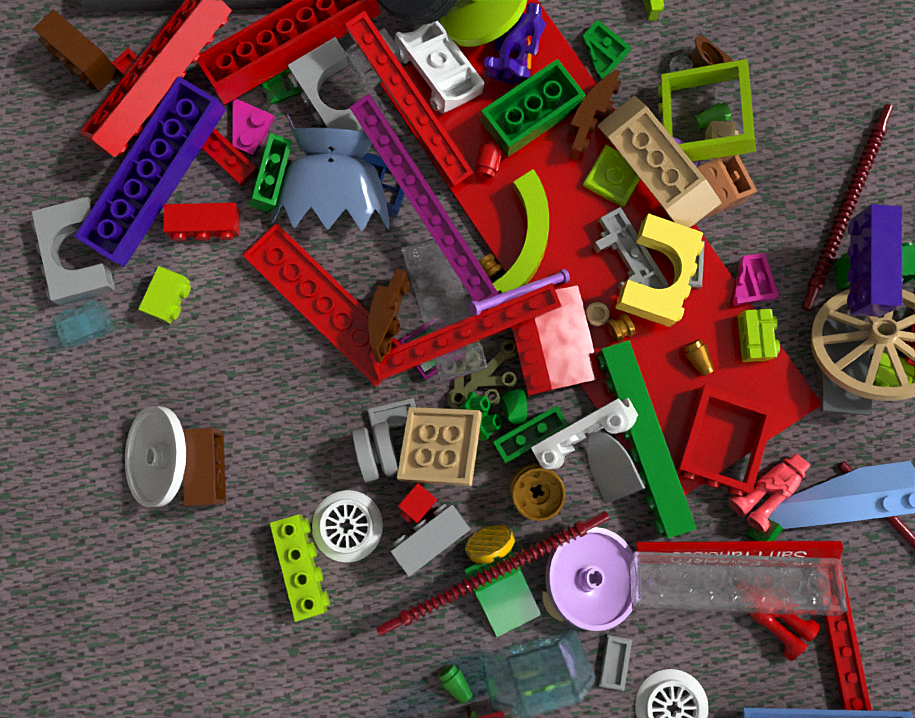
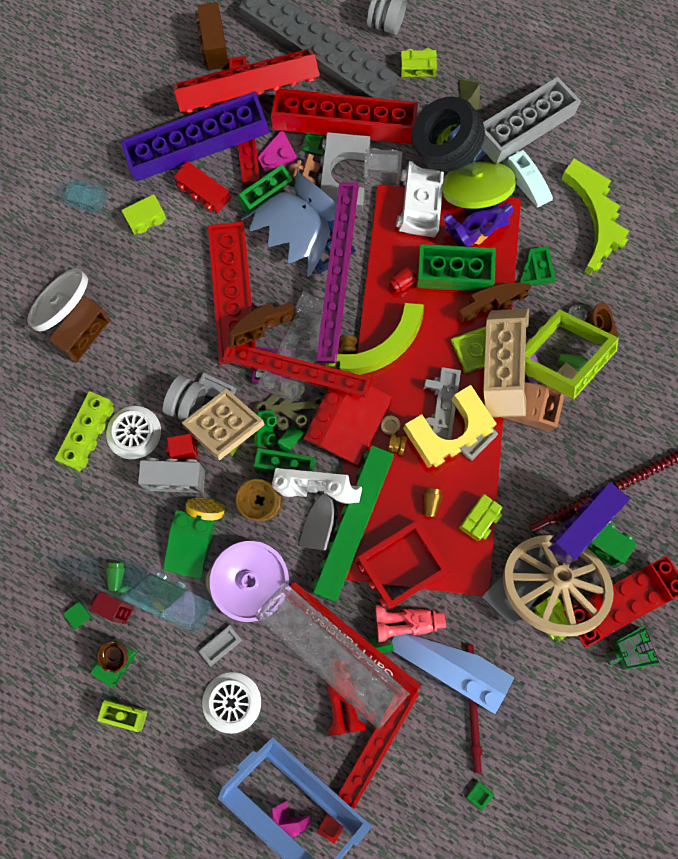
camera: 45 degrees right, 5 degrees down
(52, 227) = (114, 128): light grey arch -> none
(296, 114) = (309, 165): none -> nougat hips
(406, 616) = (117, 507): dark red hose -> none
(408, 98) = (381, 205): red plate -> none
(476, 307) = (311, 356): medium lavender bar -> none
(754, 281) = (510, 484): dark pink wing -> none

